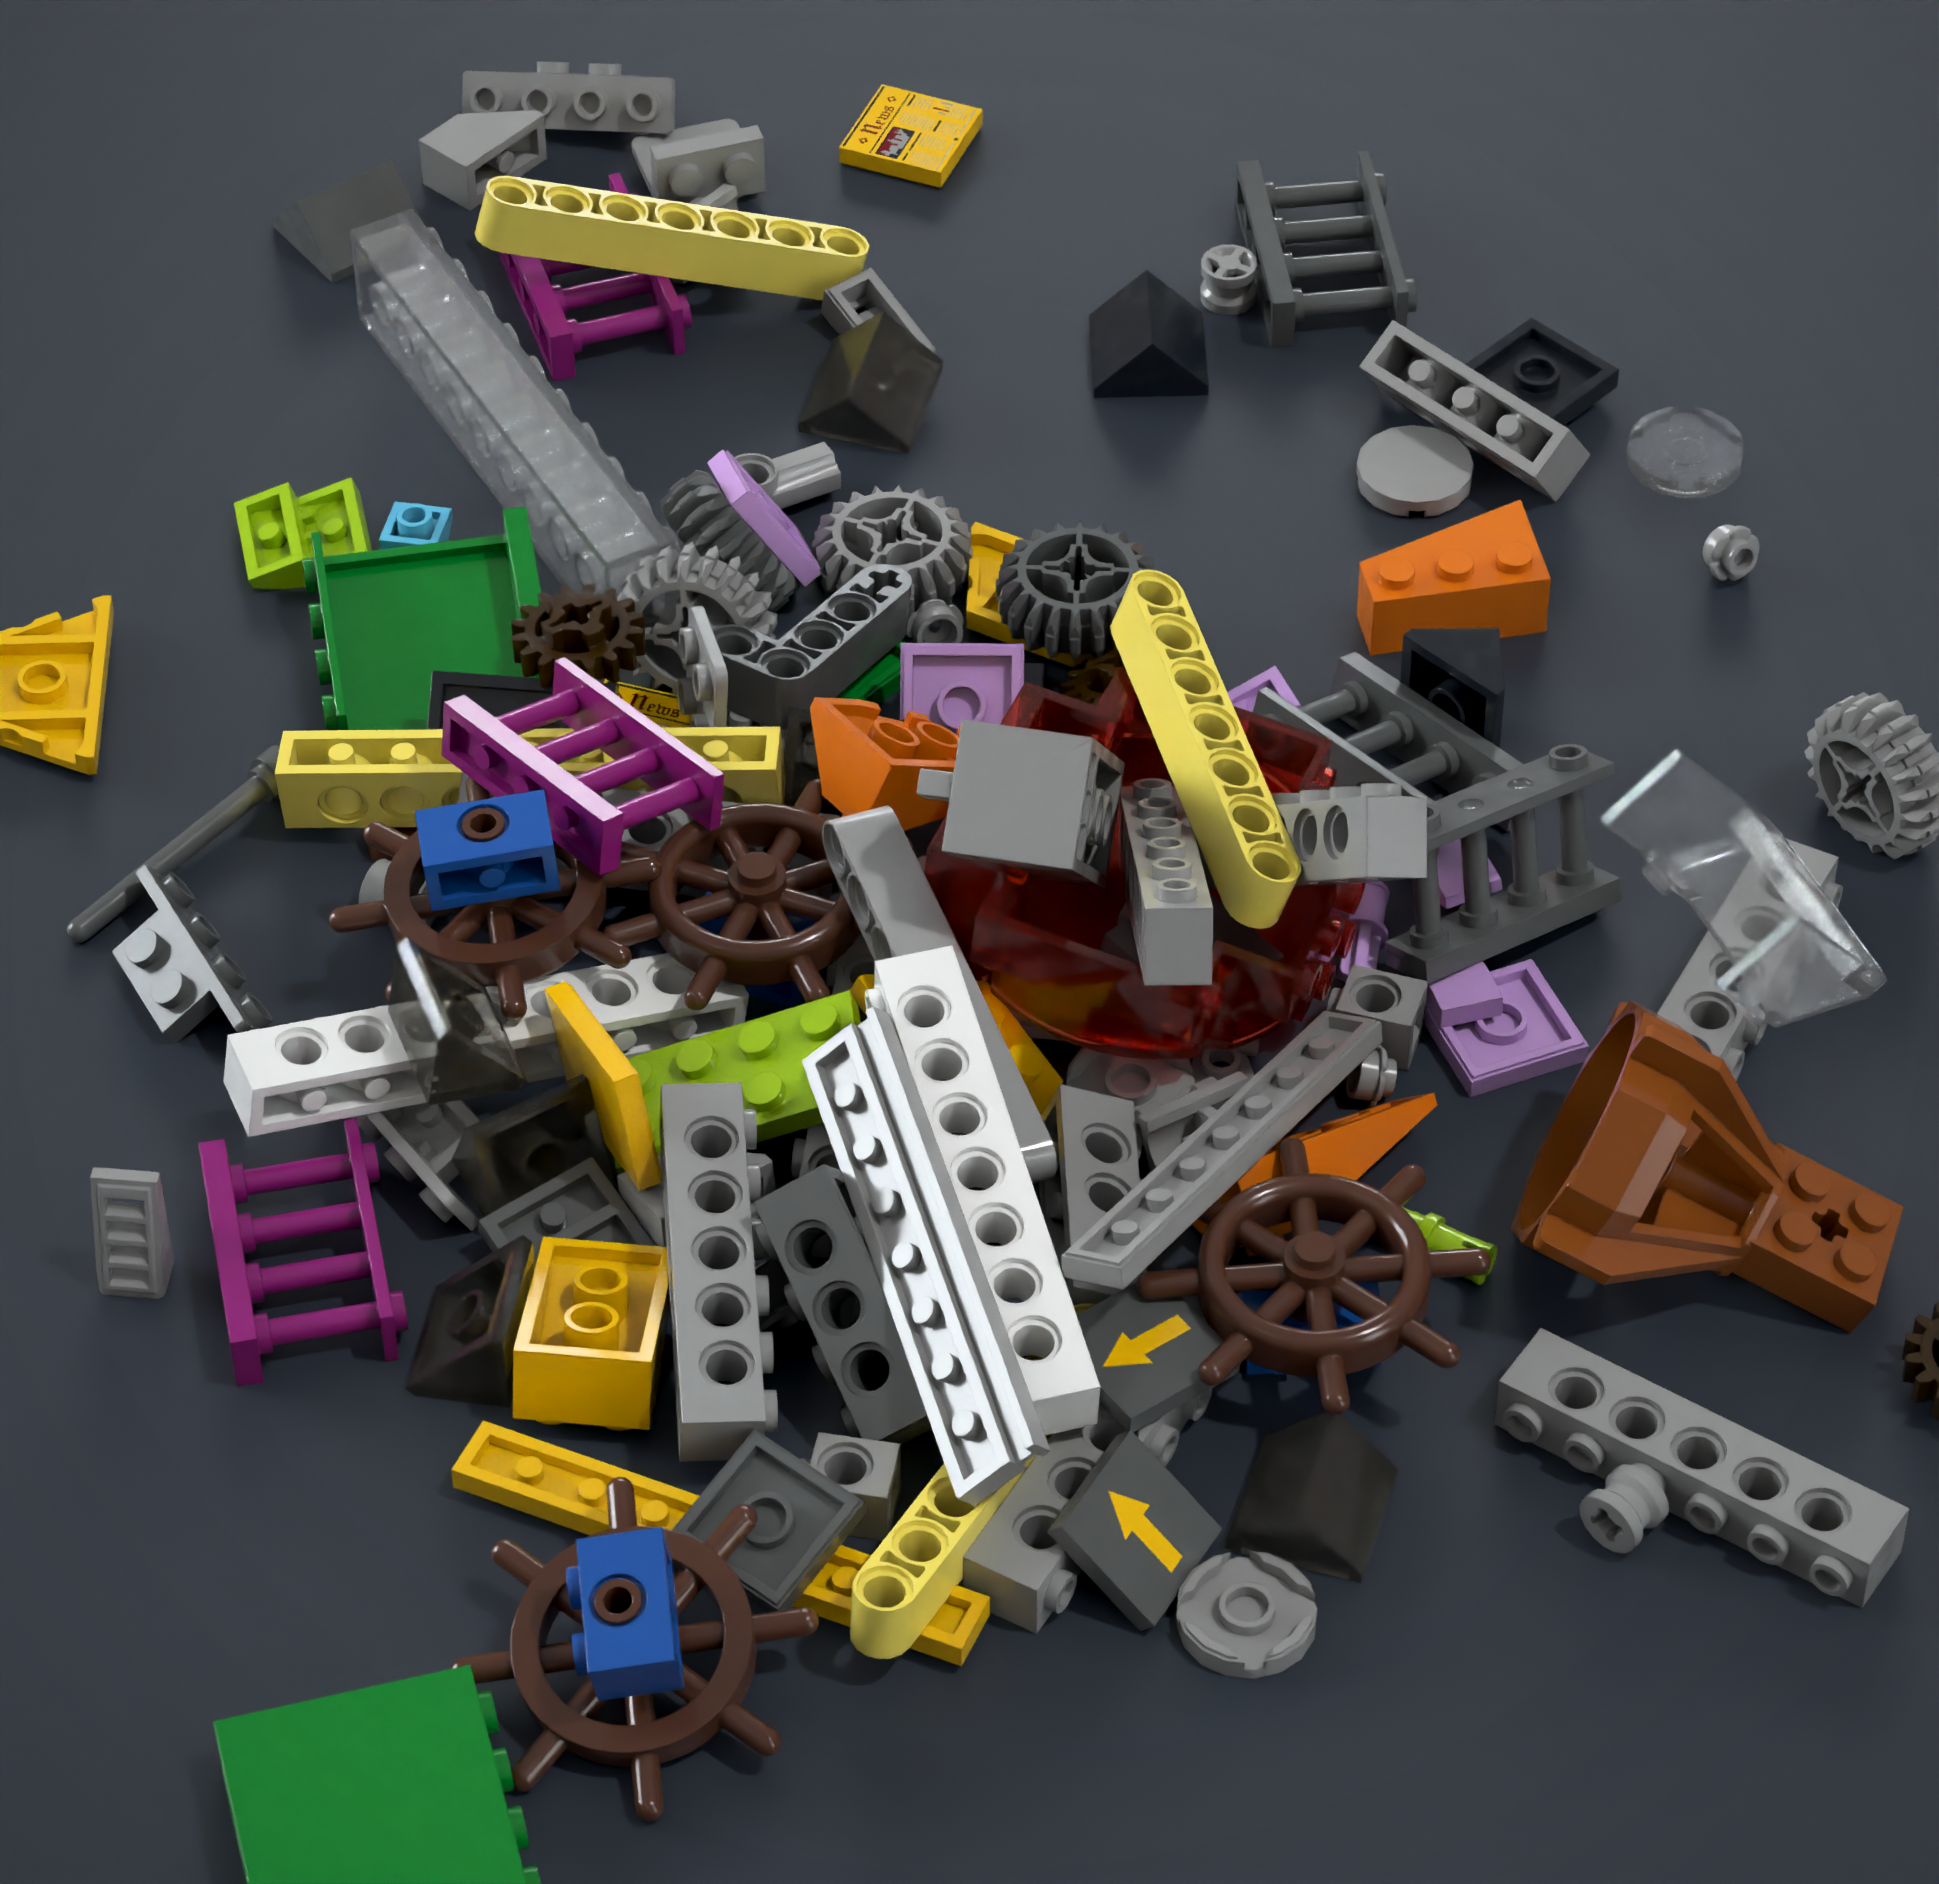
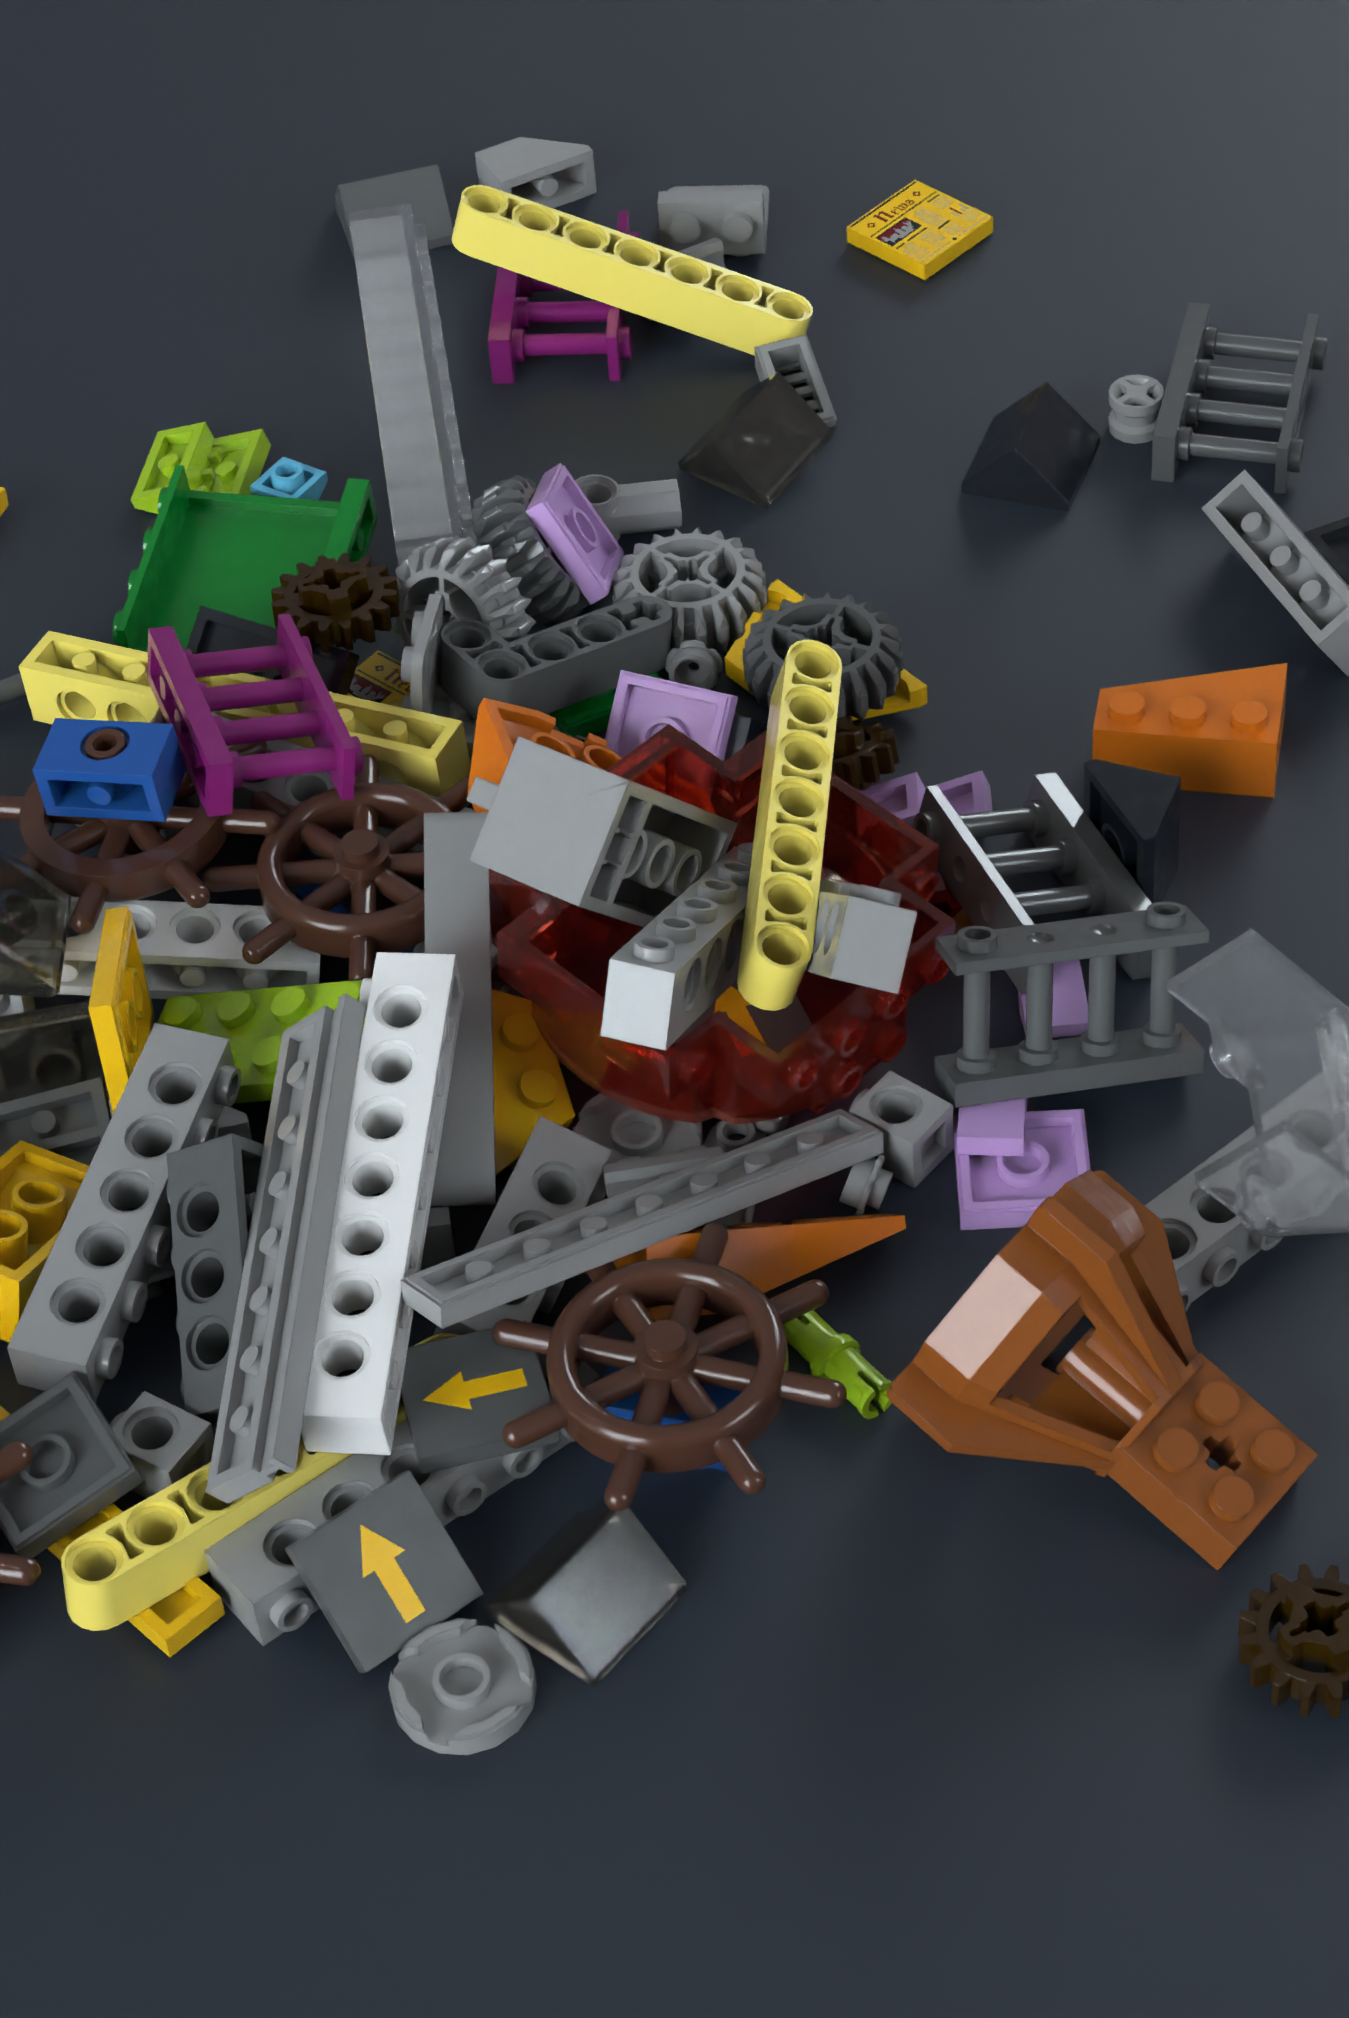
camera: 25 degrees right, 0 degrees up
(576, 100) = (636, 146): light grey bracket -> none
(1370, 931) = (932, 1039): lavender axle -> none
(1414, 471) = (1221, 619): light grey tile -> none
(1624, 1508) = (876, 1688): light grey wheel -> none
(1708, 1467) = (966, 1630): light grey brick -> none

